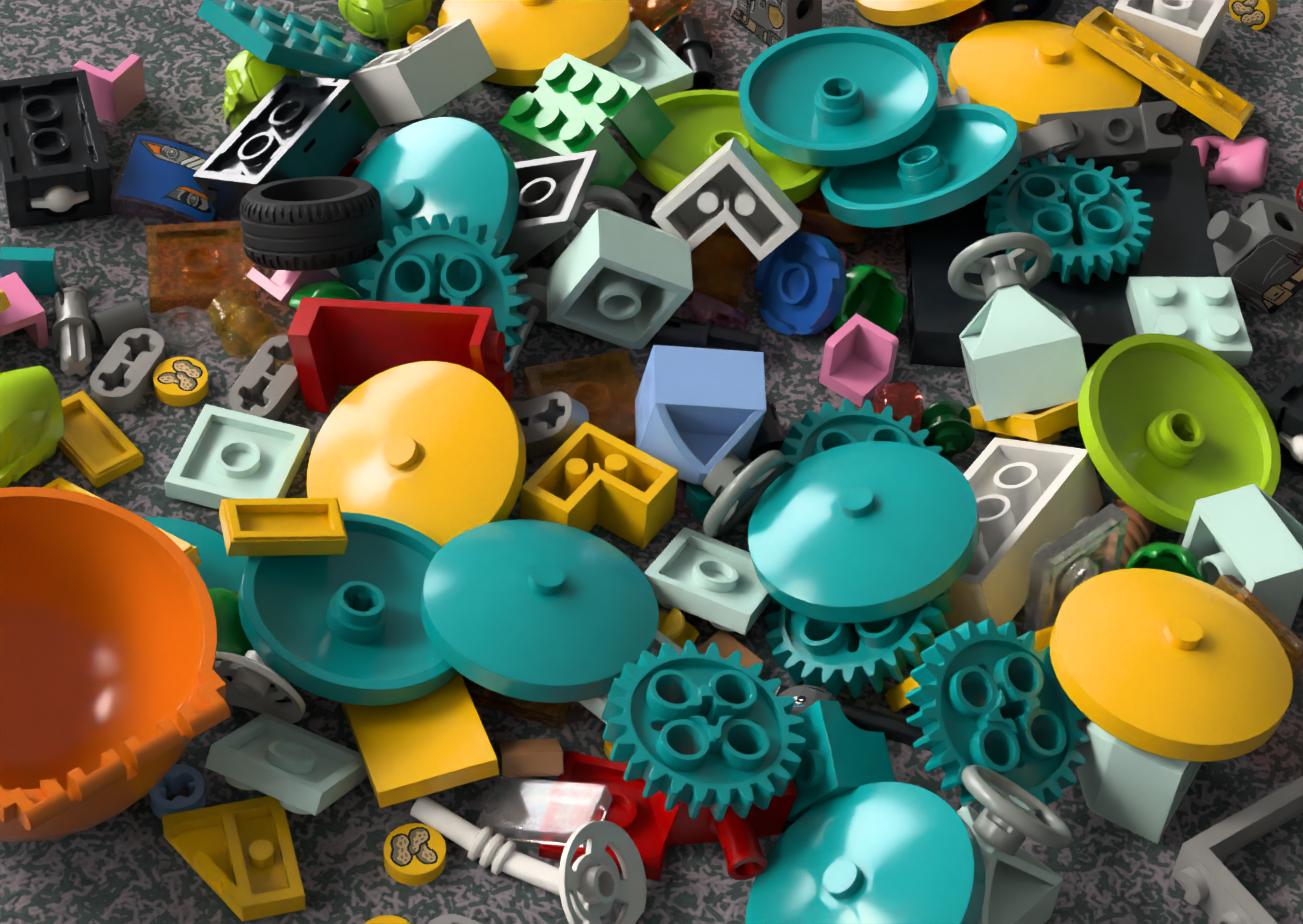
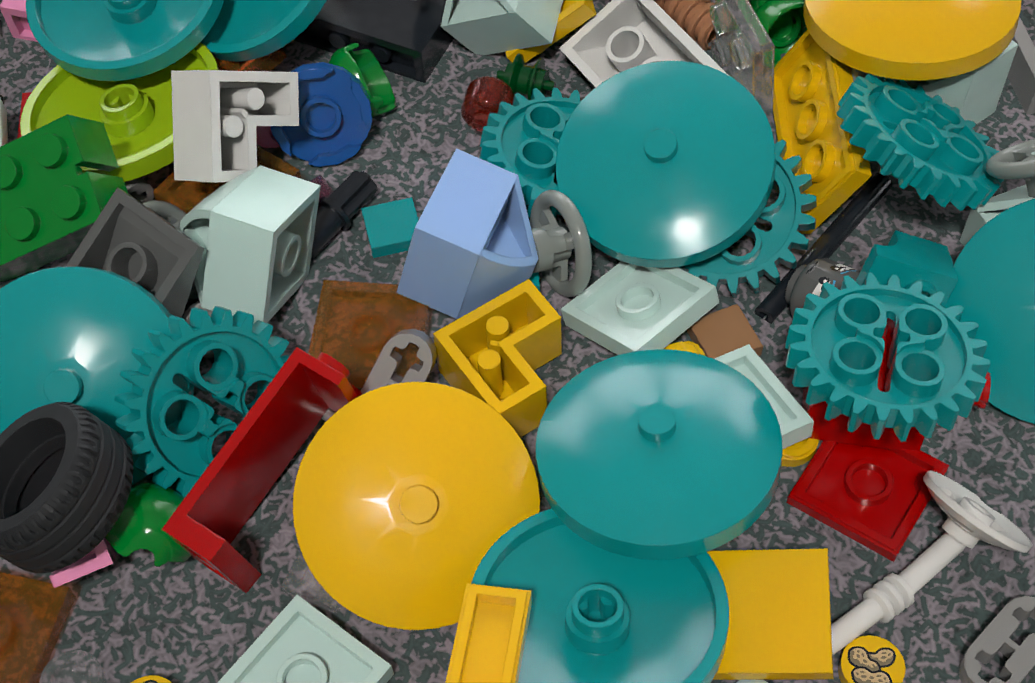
camera: 60 degrees left, 10 degrees up
(240, 323) = (112, 617): clear yellow piece -> none
(261, 375) = (194, 624): light grey beam -> none
(530, 757) = (794, 522): medium nougat tile -> none
(542, 809) = (872, 533): clear tile -> none
(858, 359) = (420, 111): bright pink panel -> none

